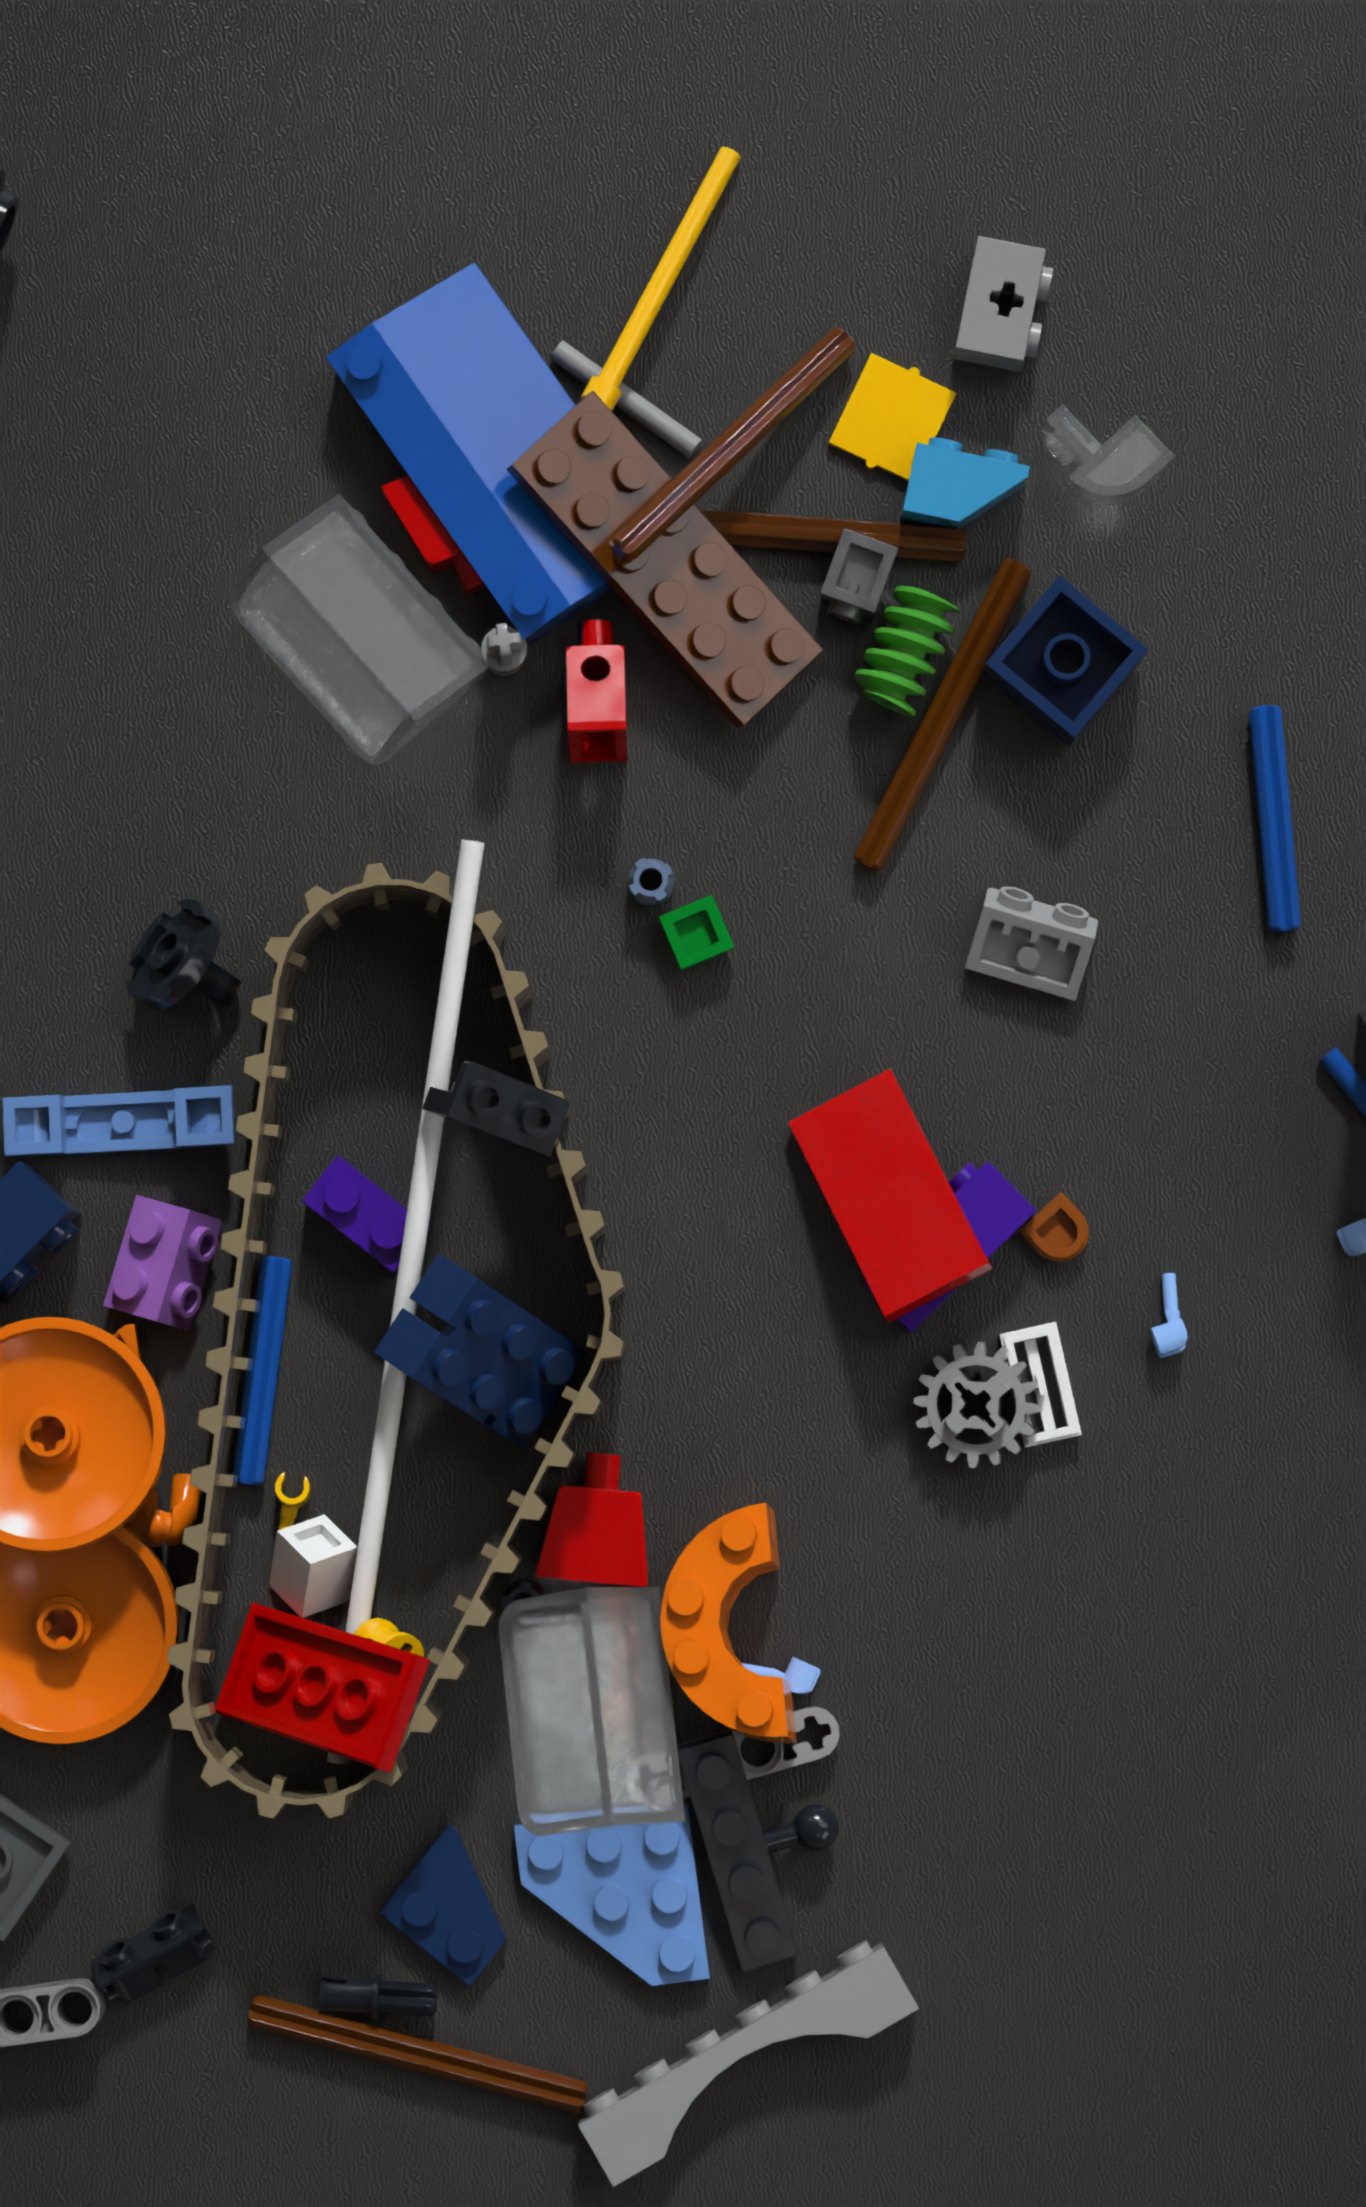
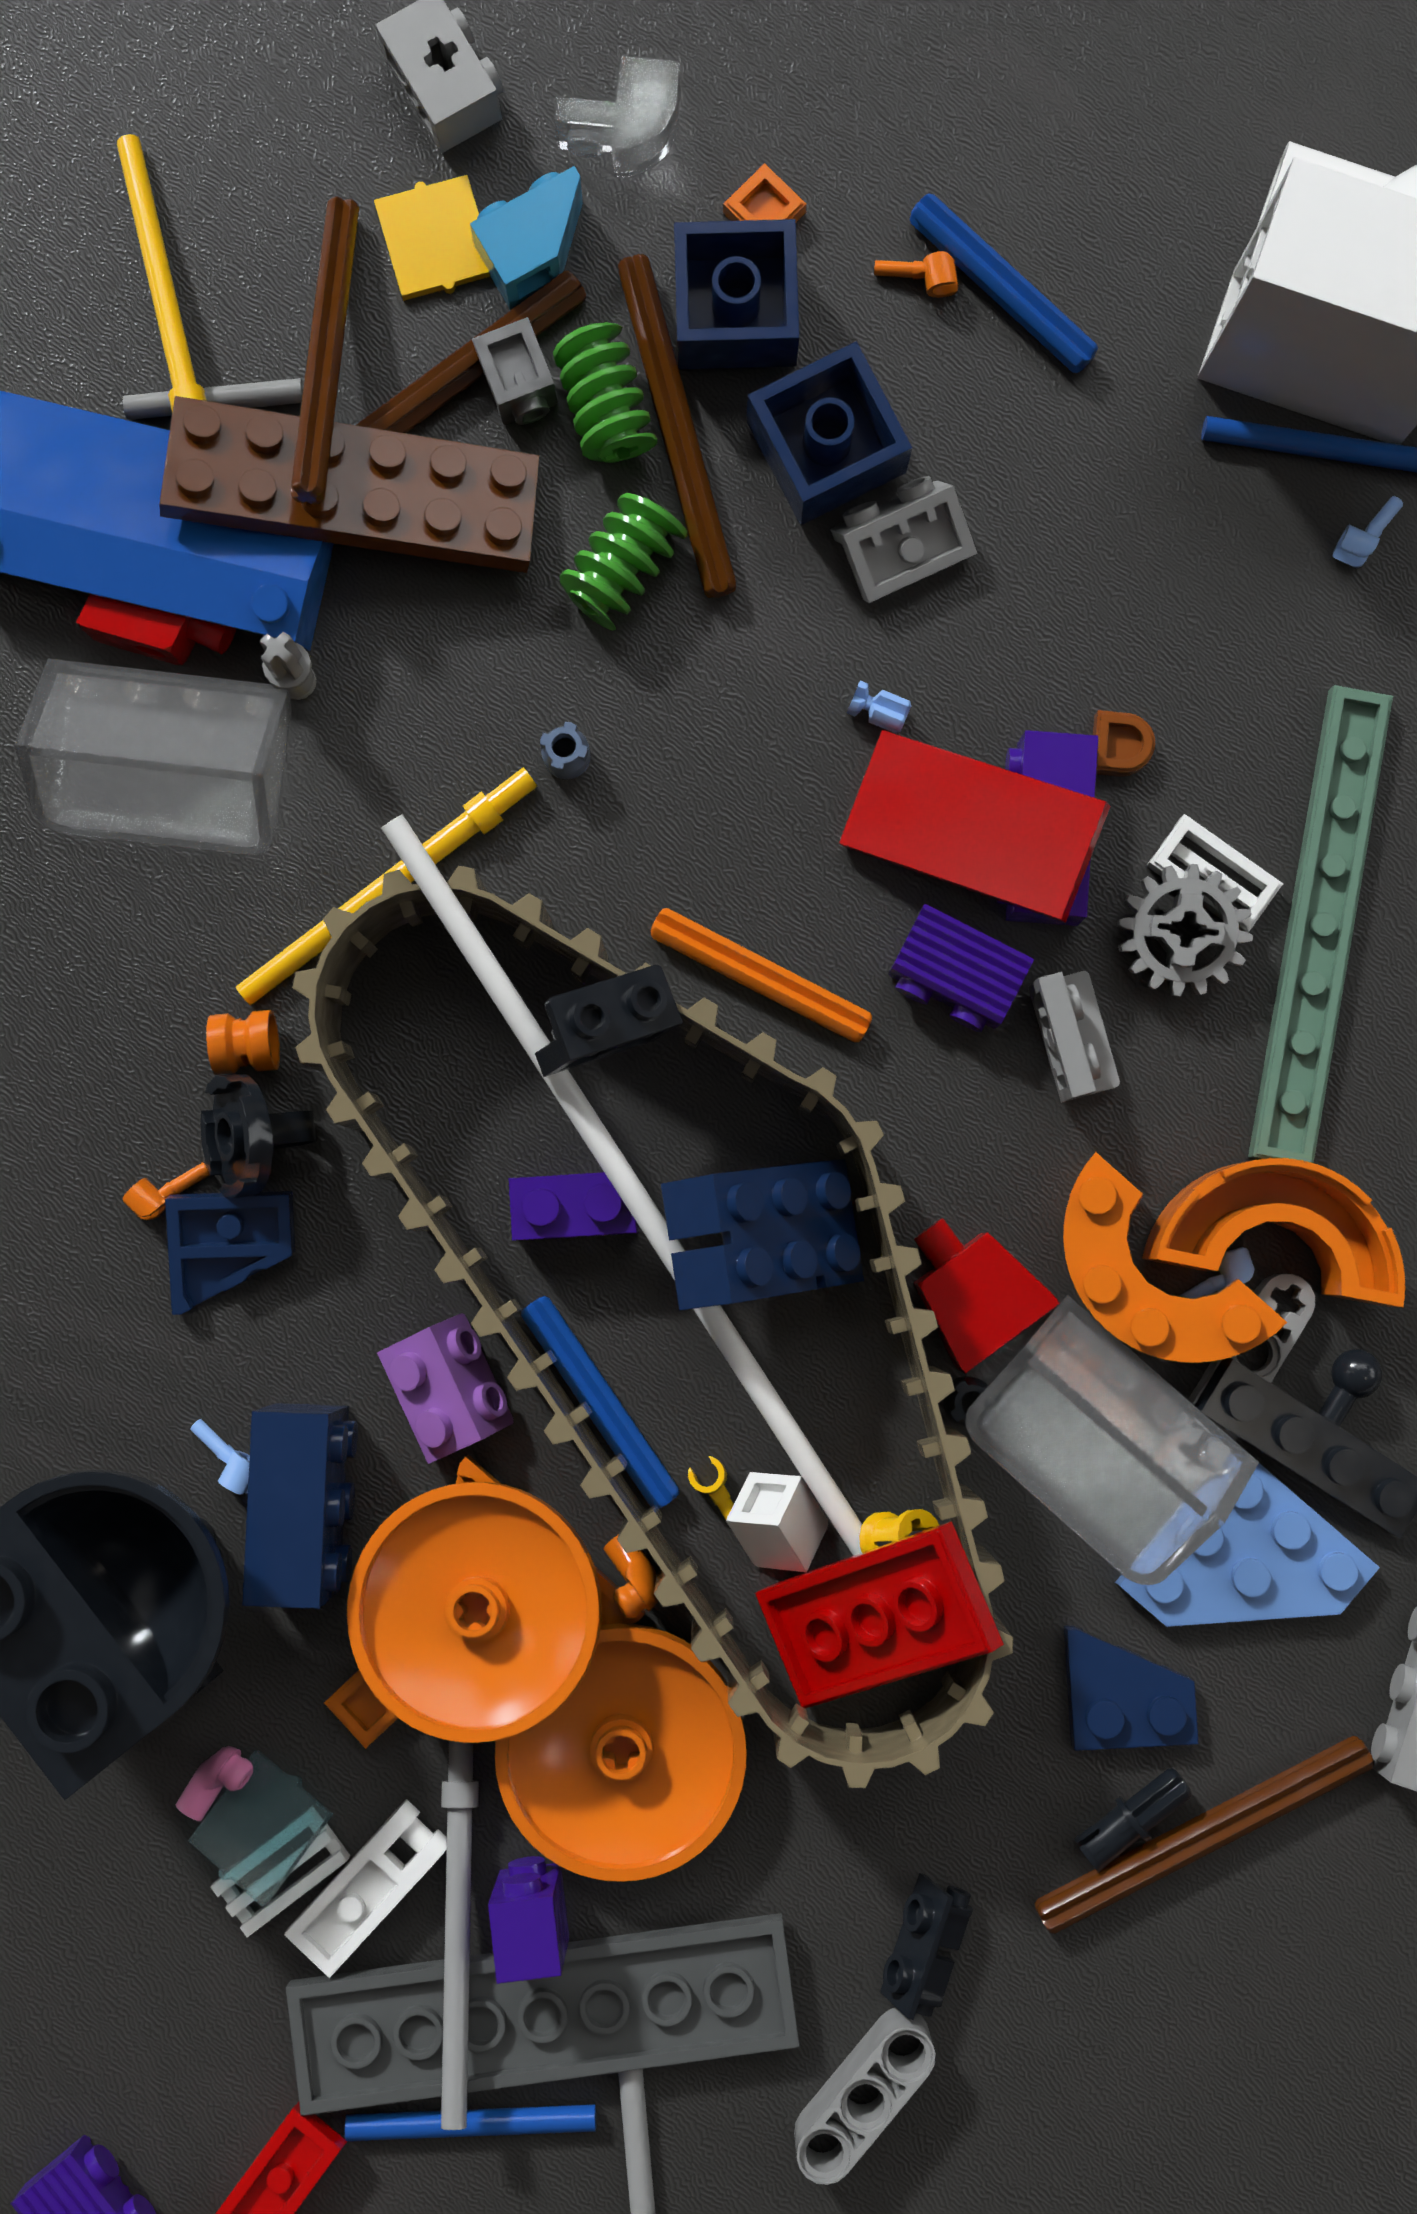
camera: 40 degrees left, 0 degrees up
(70, 944) = (149, 1202): none -> orange hand
(98, 1020) = (224, 1241): none -> dark blue wing
(119, 1121) = (311, 1307): medium blue slope -> none
(234, 888) = (241, 1042): none -> orange wheel
(549, 874) = (480, 814): none -> yellow bar
(596, 696) = (395, 641): torso -> none
(647, 1167) = (761, 975): none -> orange axle
(696, 933) = (636, 758): green plate -> none
(792, 1289) = (959, 969): none -> dark purple brick
(813, 779) = (619, 557): none -> bright green piece
(833, 1410) = (1073, 1035): none -> light grey bracket
(879, 1655) = (1322, 1207): none -> orange brick
(907, 1053) = (884, 709): none -> light blue piece
(1040, 821) = (828, 433): none -> dark blue brick
(1083, 1490) = (1320, 925): none -> sand green tile
(1151, 608) = (764, 198): none -> orange tile
(1171, 1336) = (1282, 743): light blue hand -> none
(1235, 768) = (936, 268): none -> orange hand

